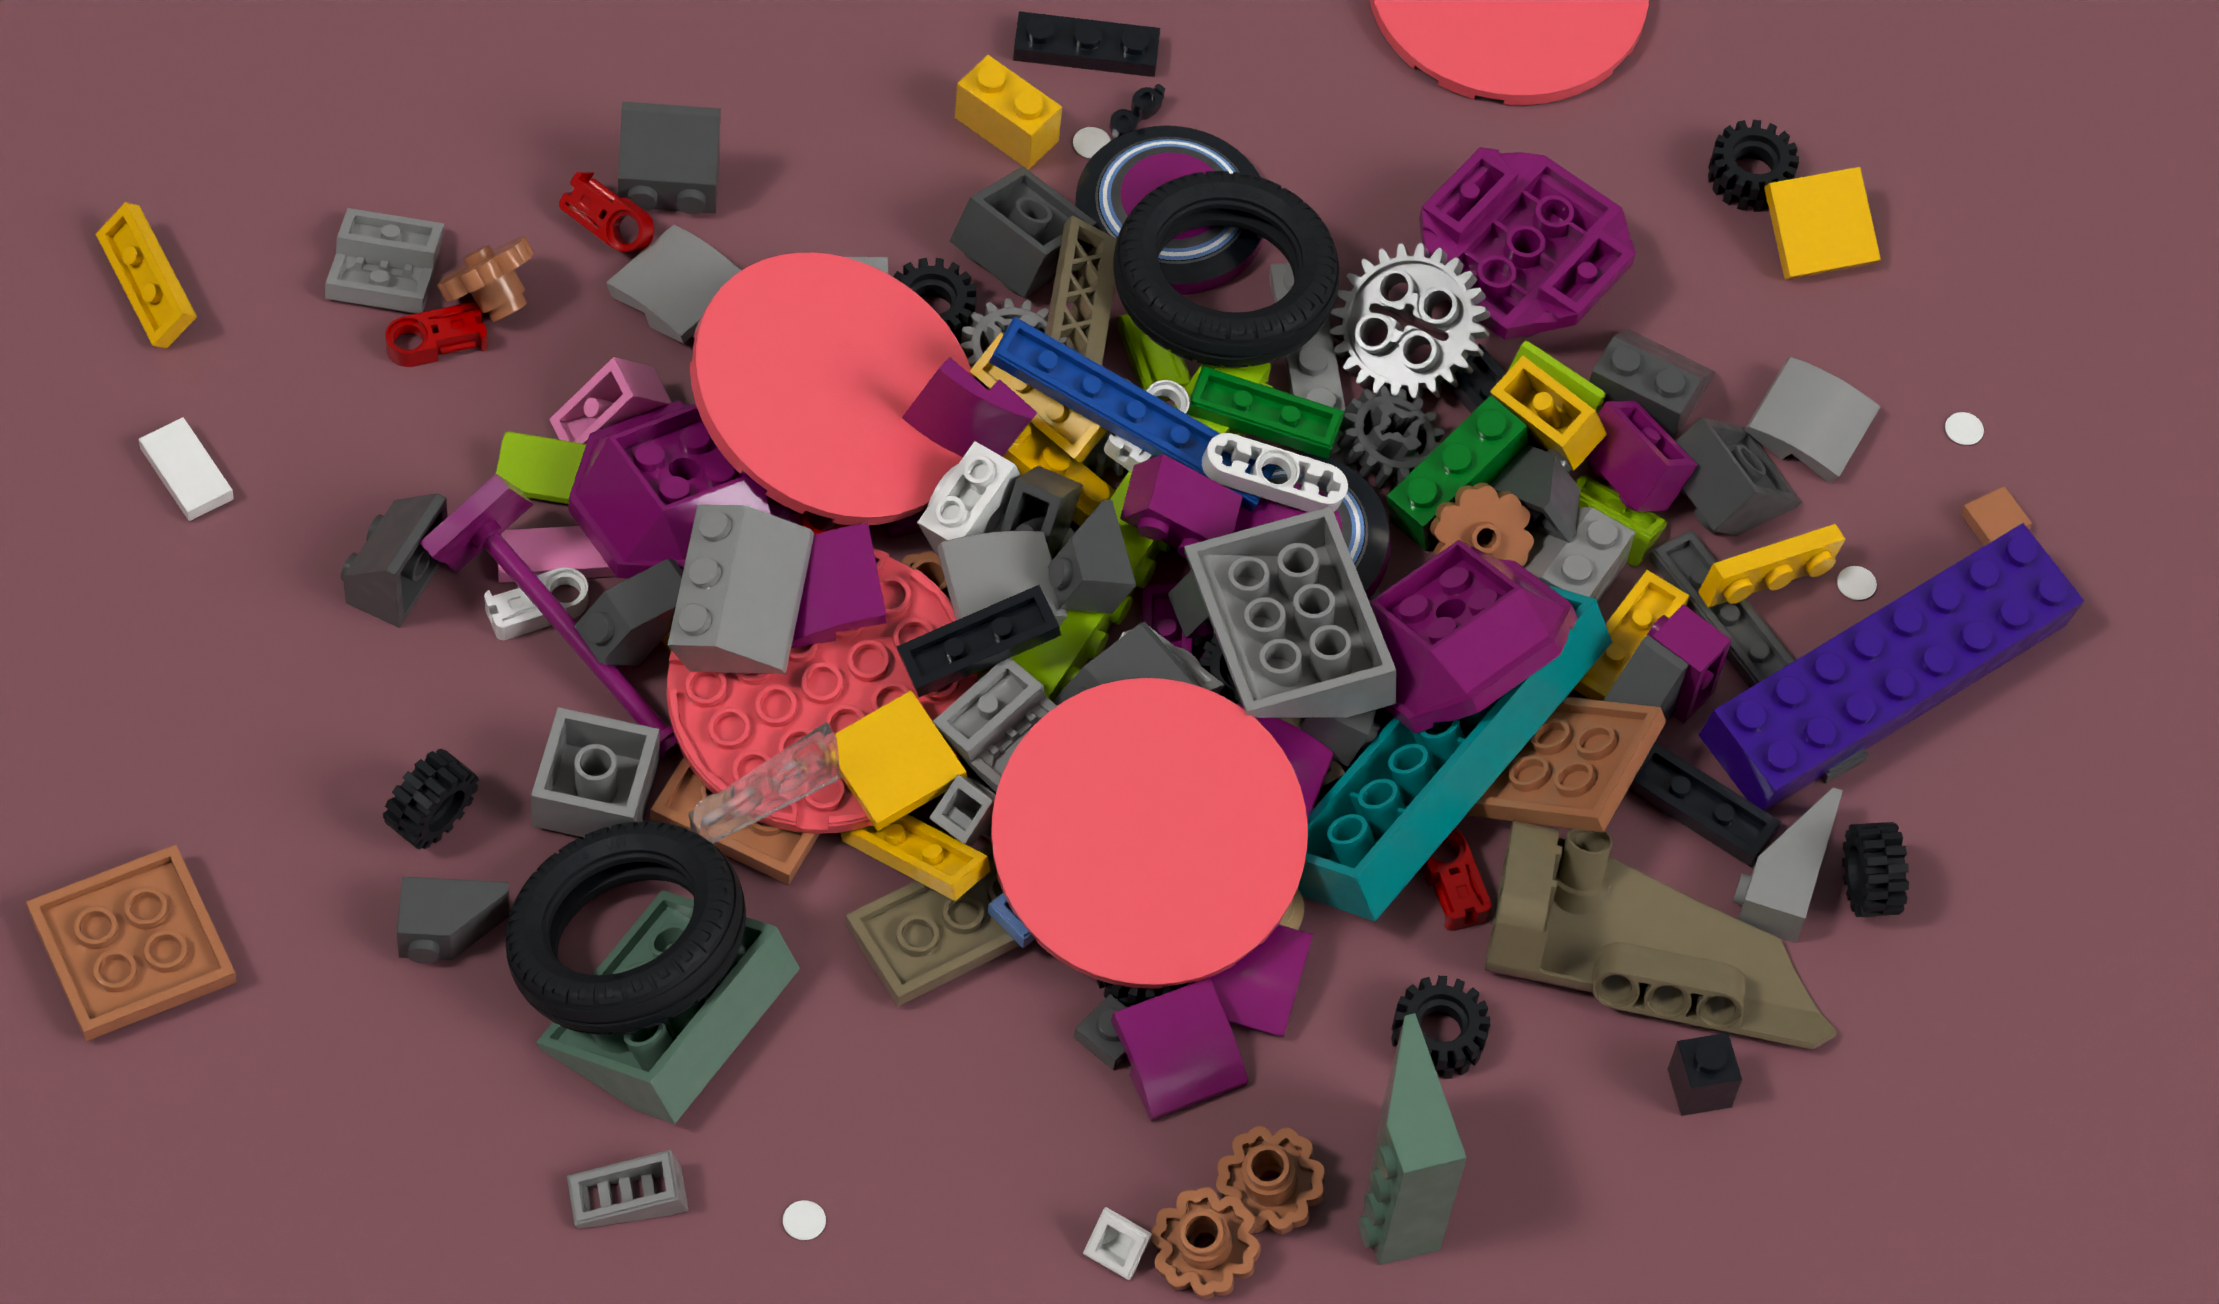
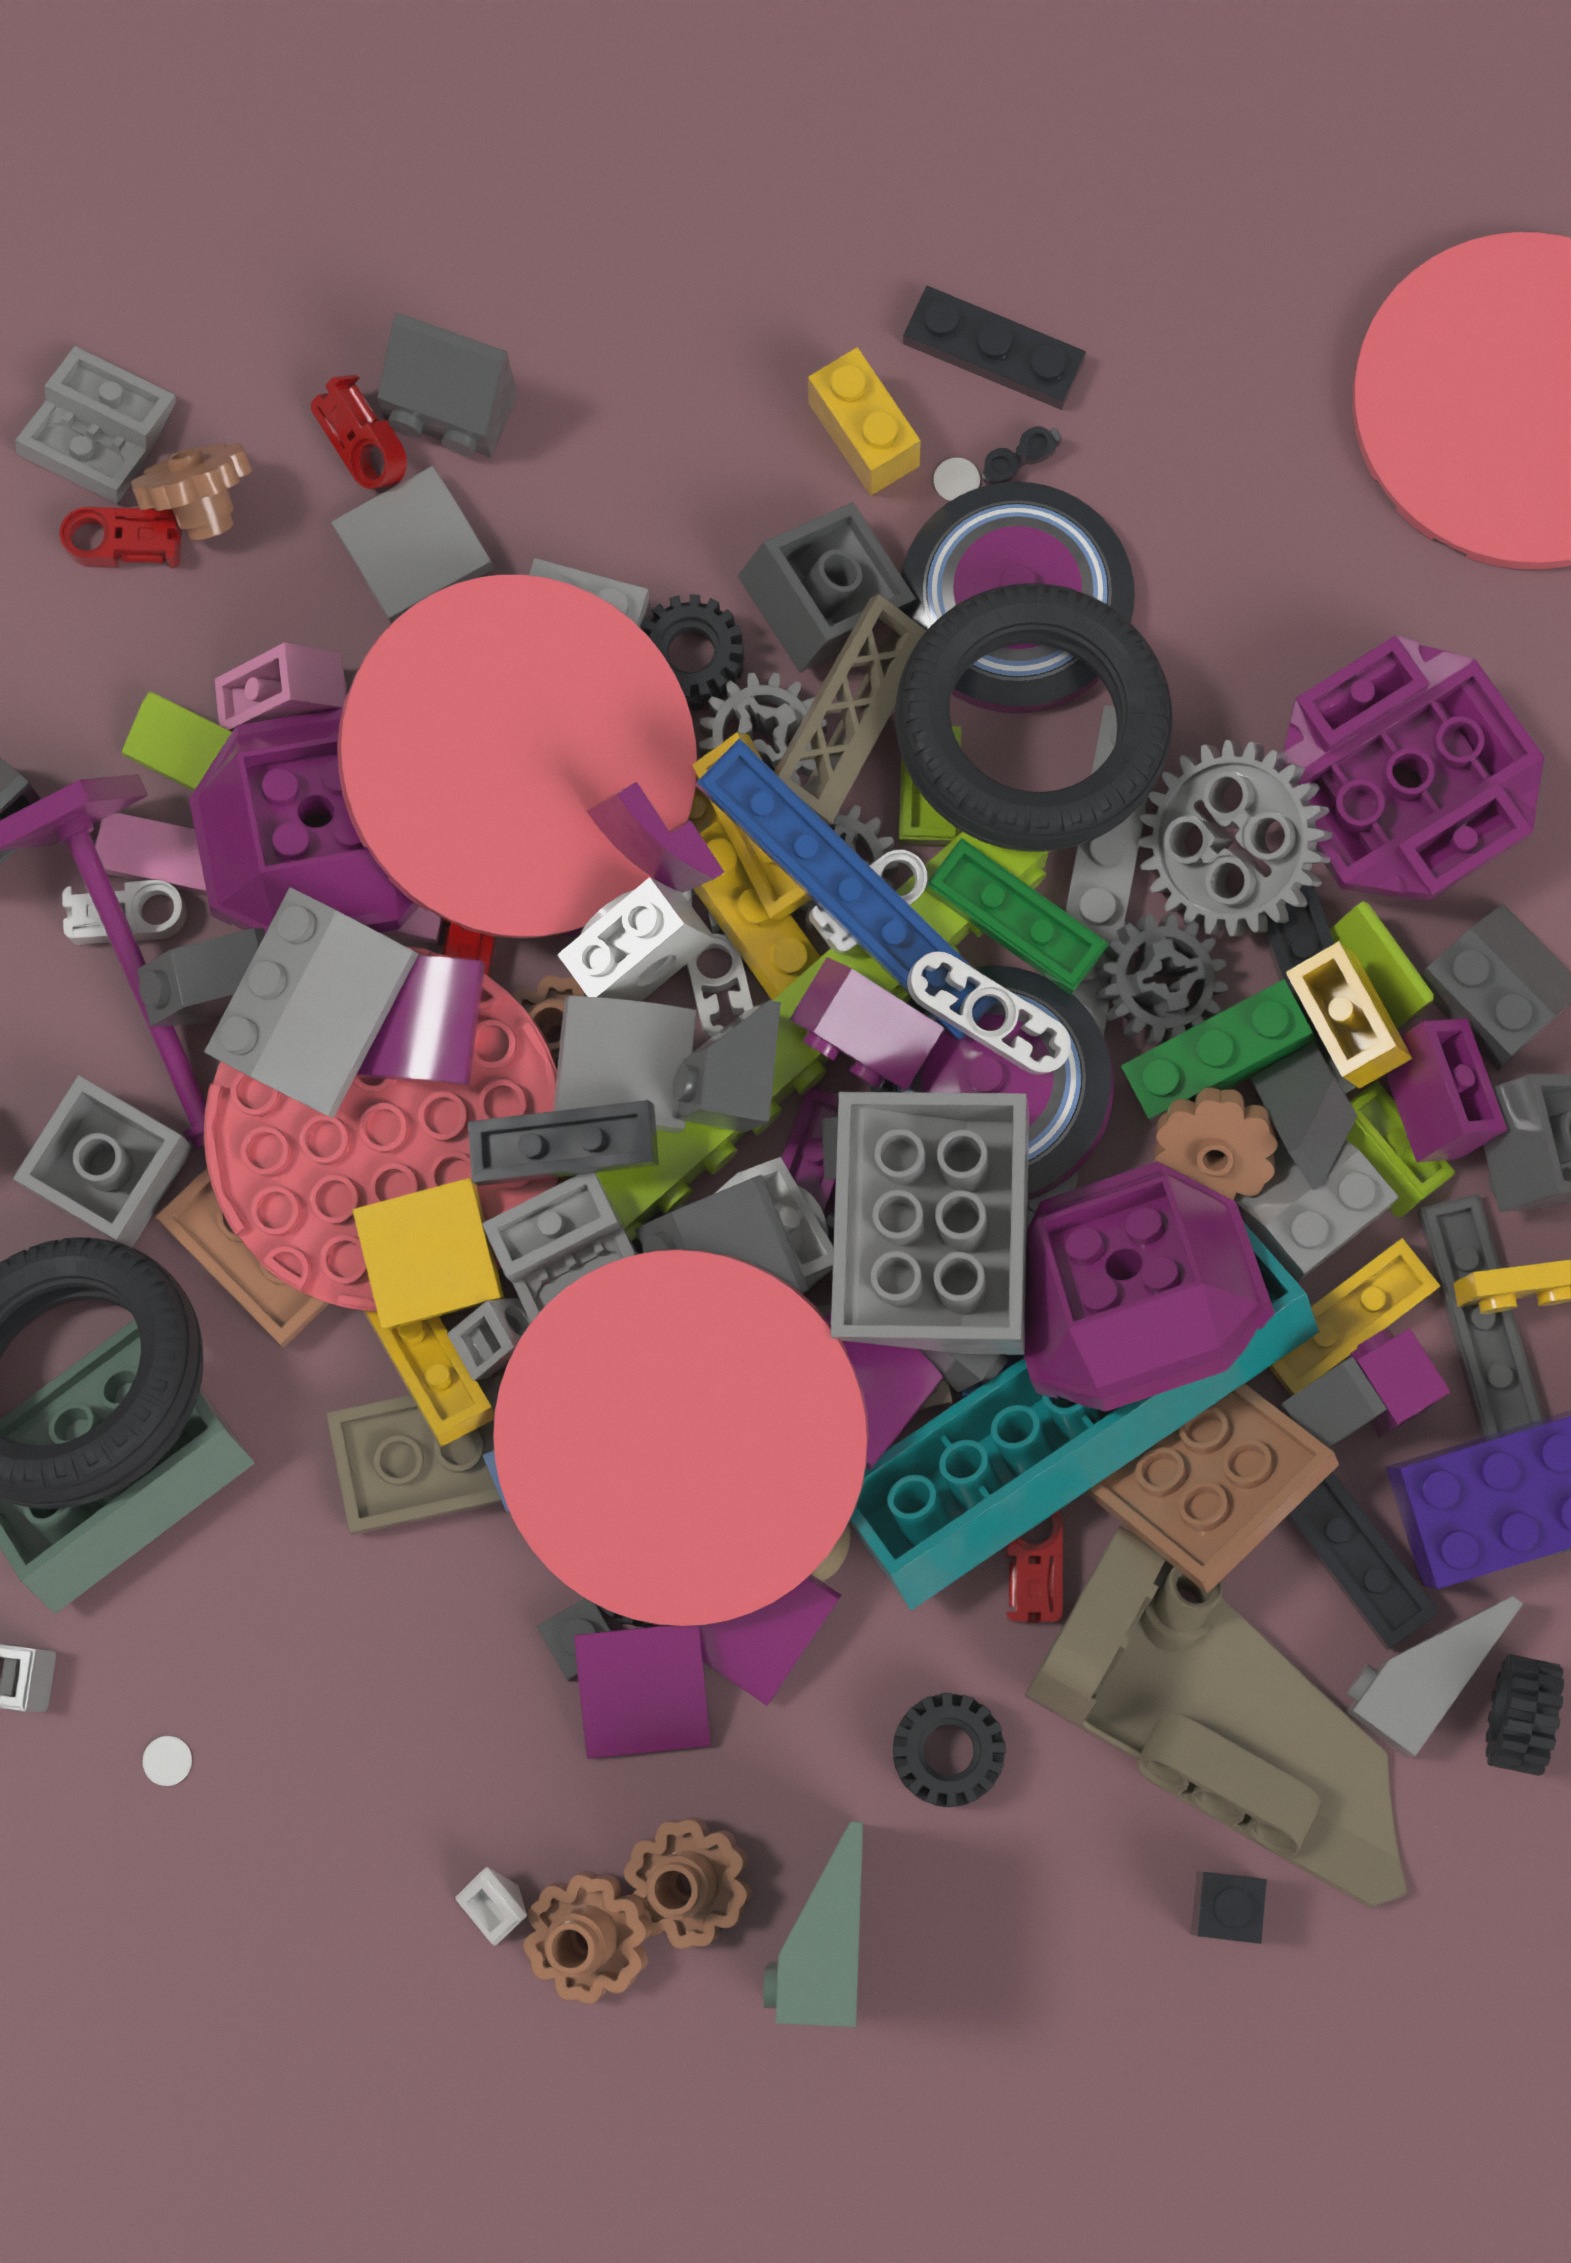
camera: 30 degrees right, 20 degrees up
(773, 785) = (265, 1253): clear wing -> none
(1043, 504) = (709, 973): dark grey slope -> none

